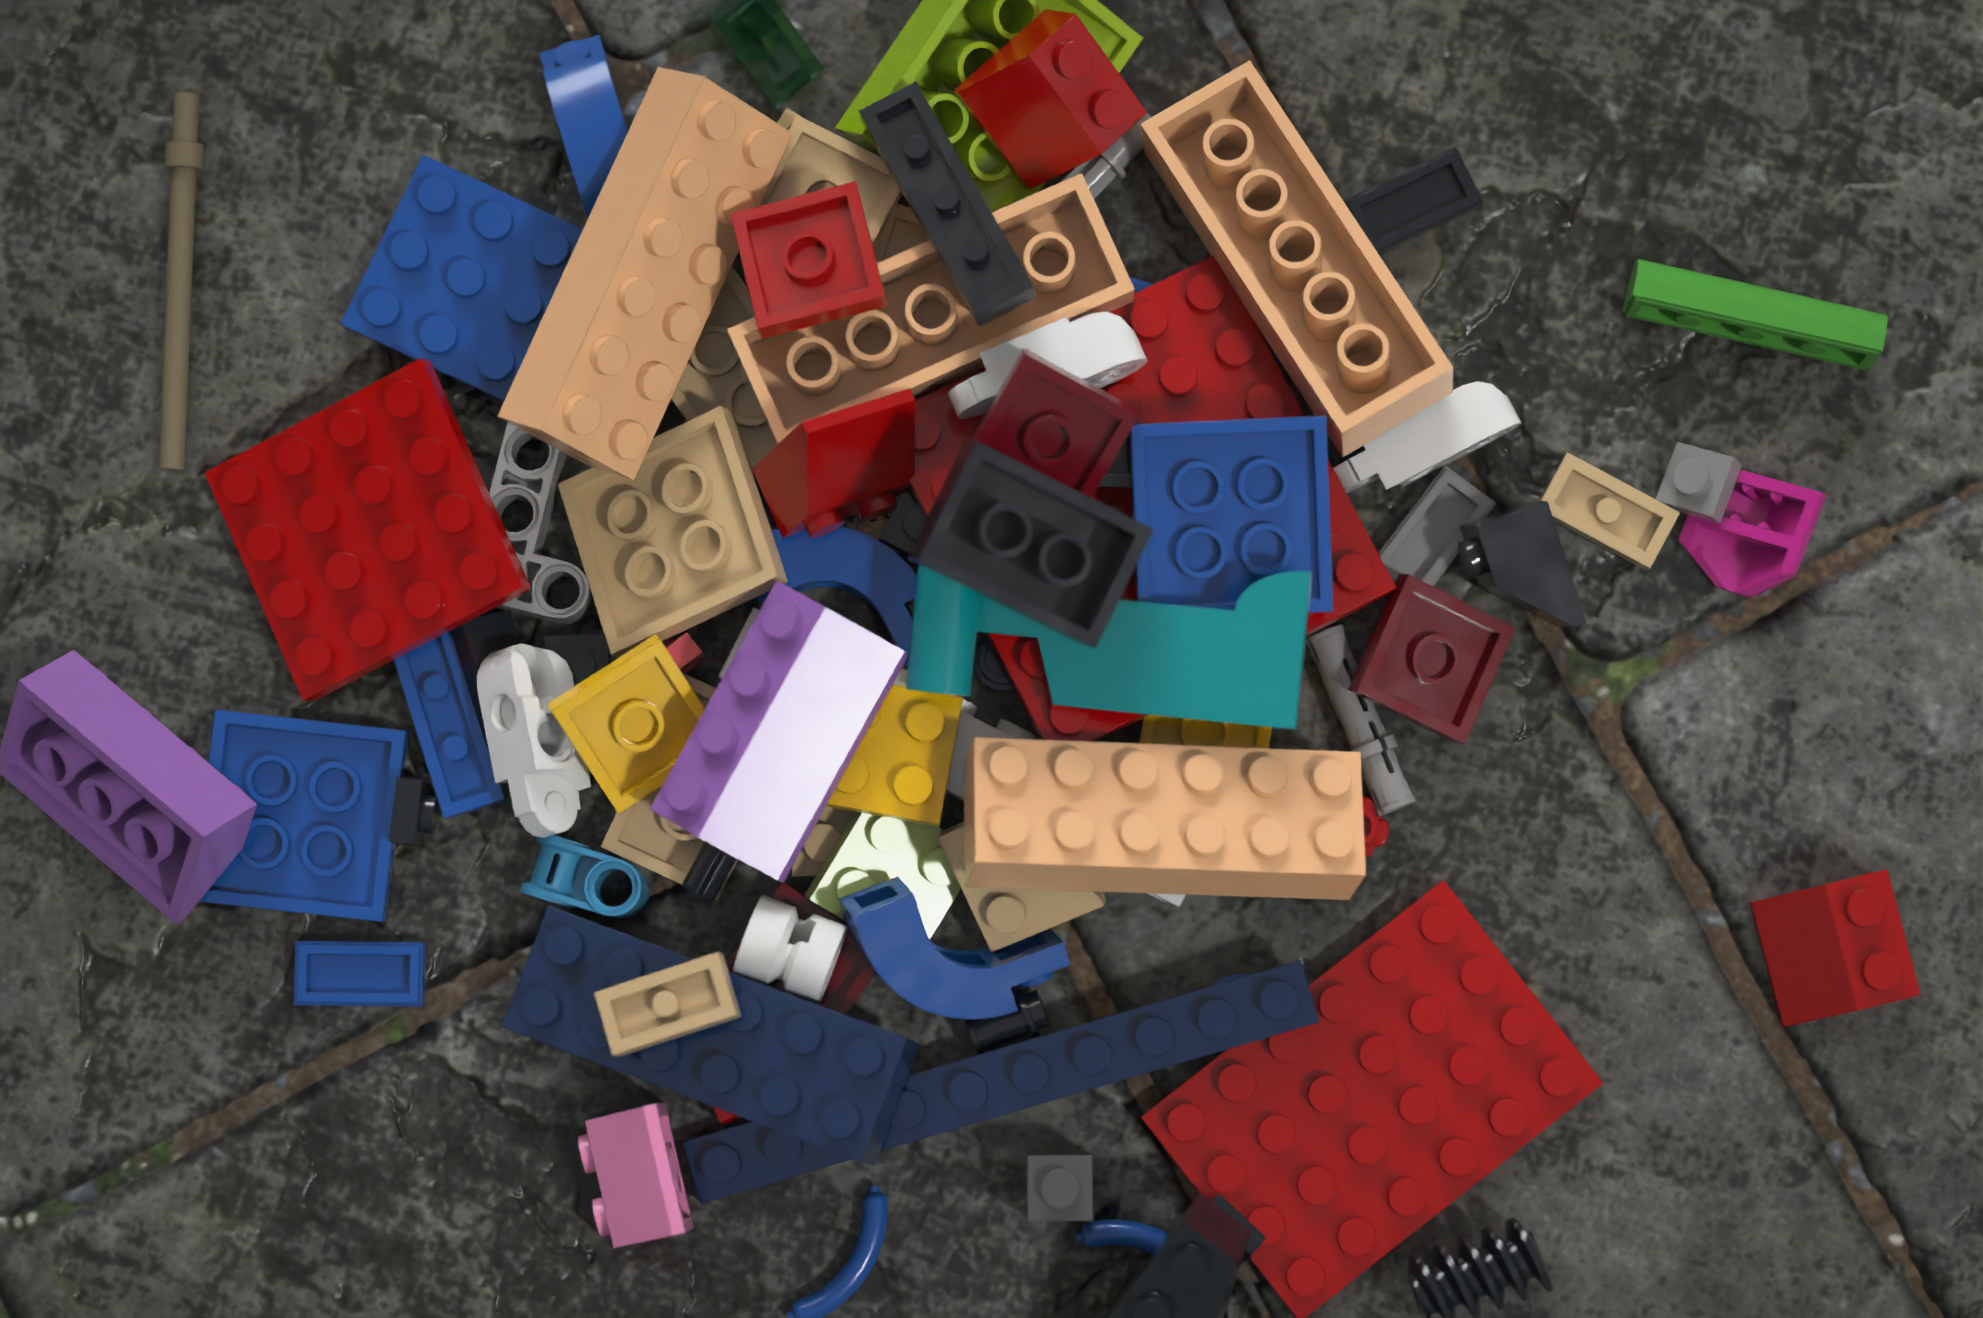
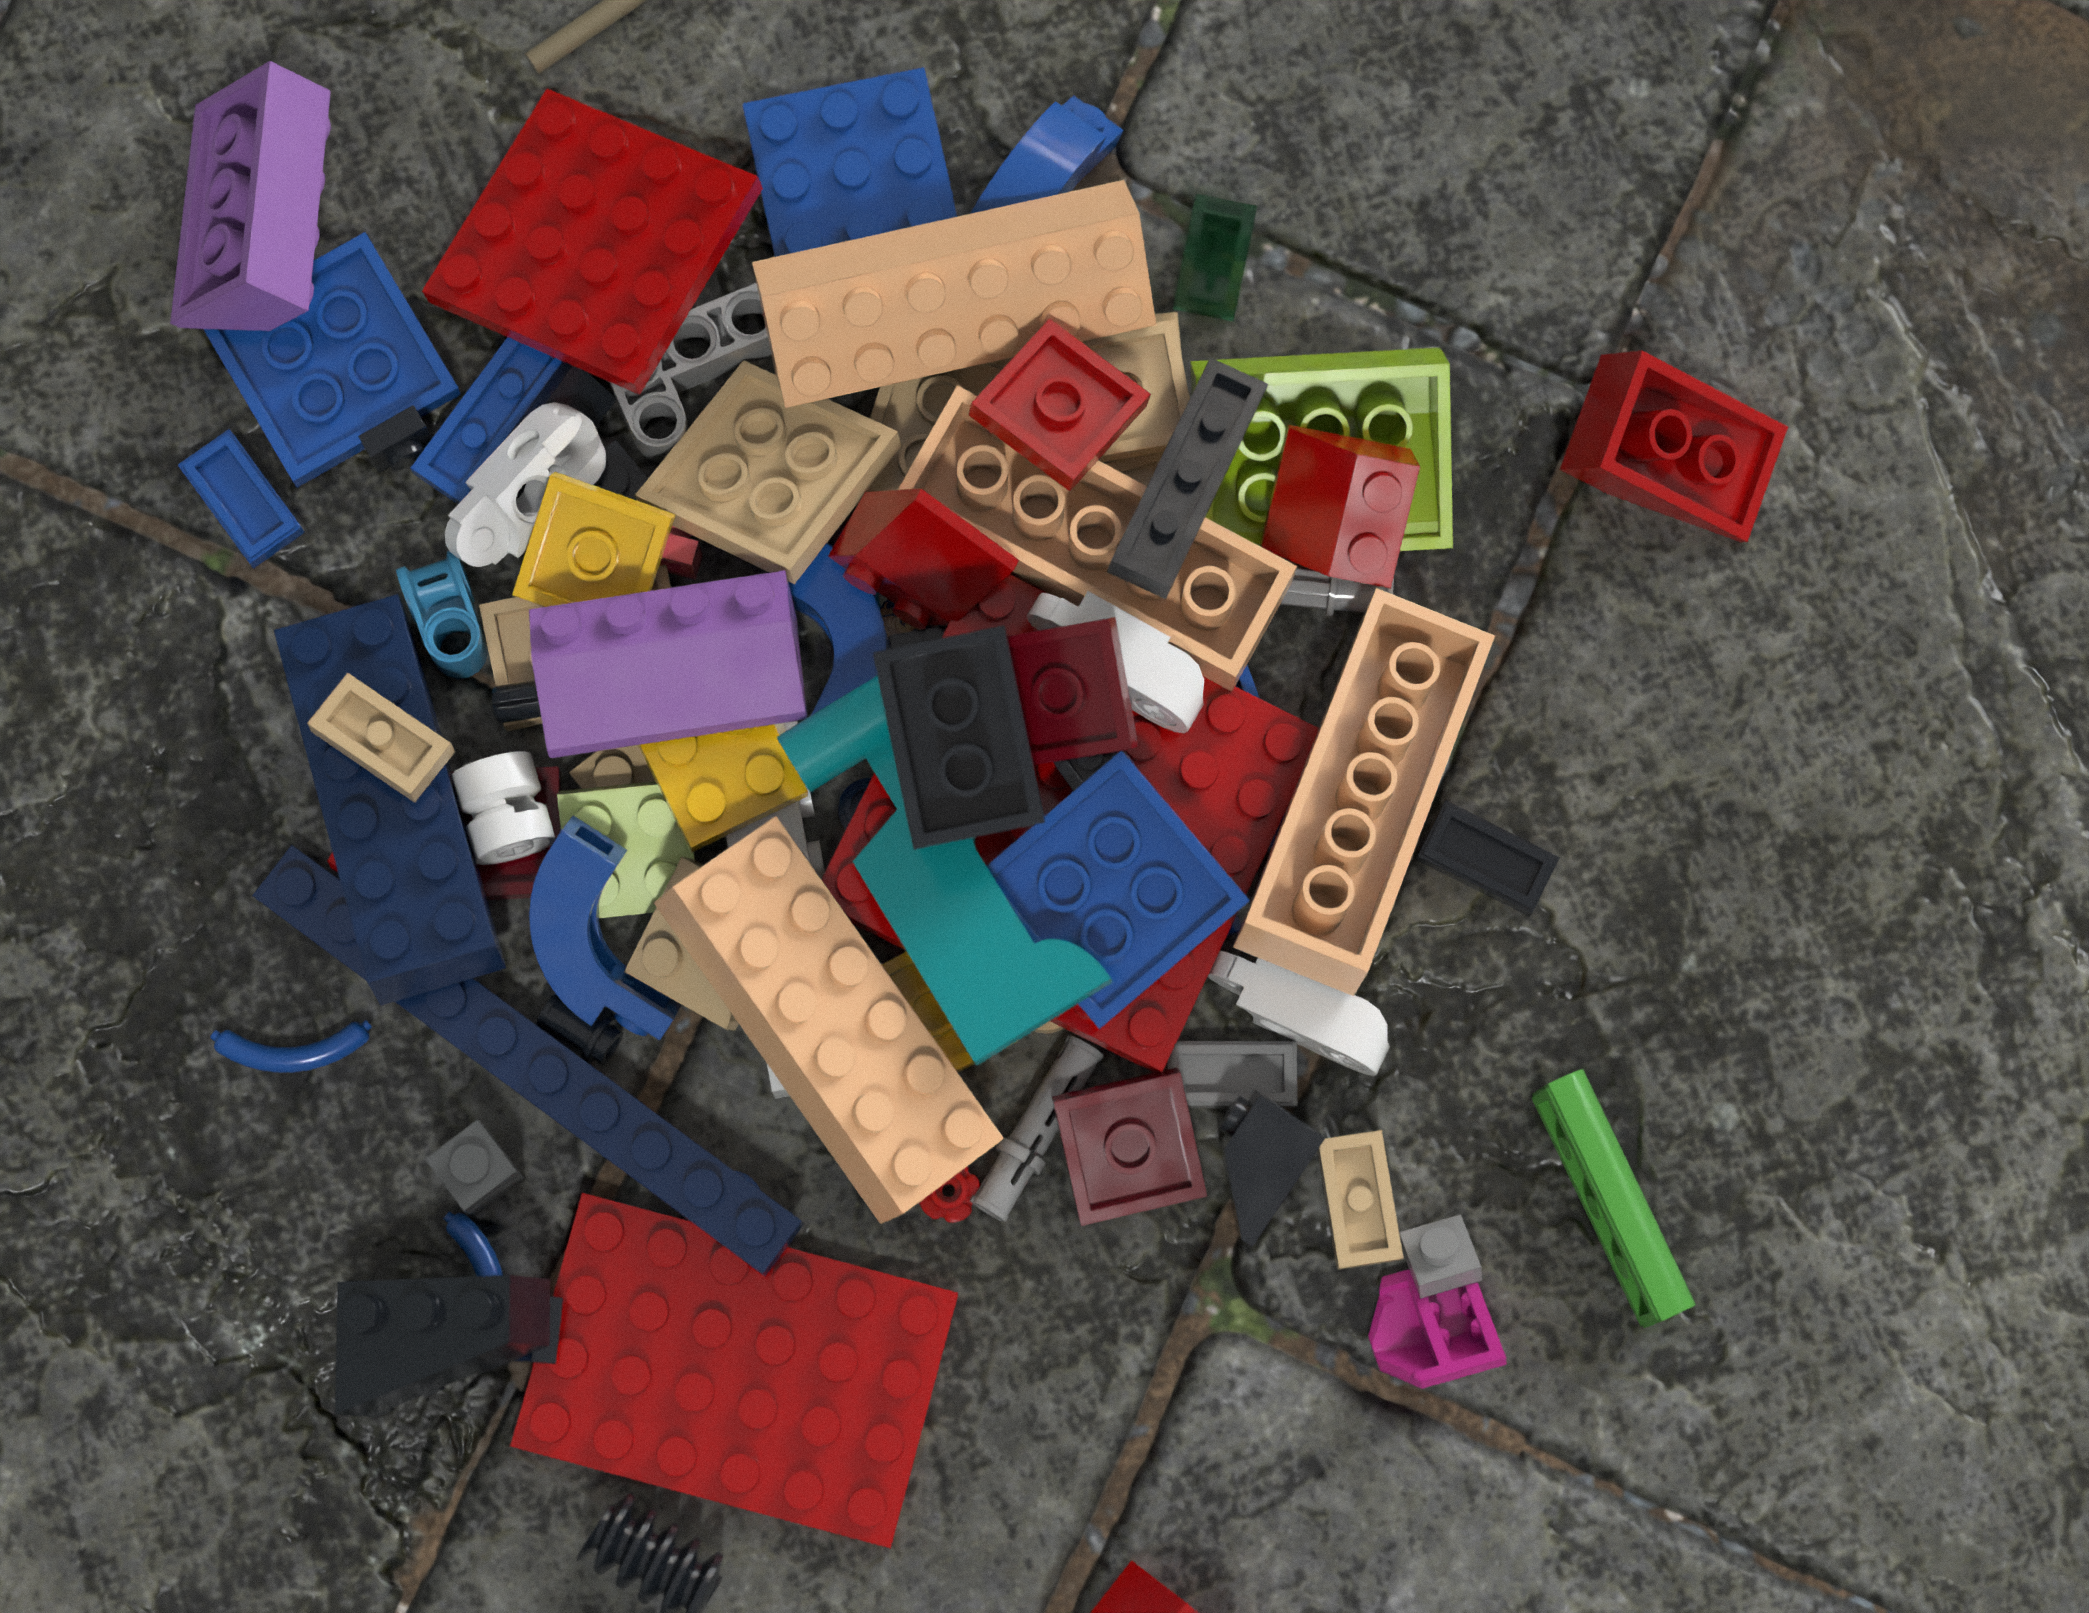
camera: 45 degrees right, 5 degrees down
(636, 1175) = (238, 827): bright pink slope -> none

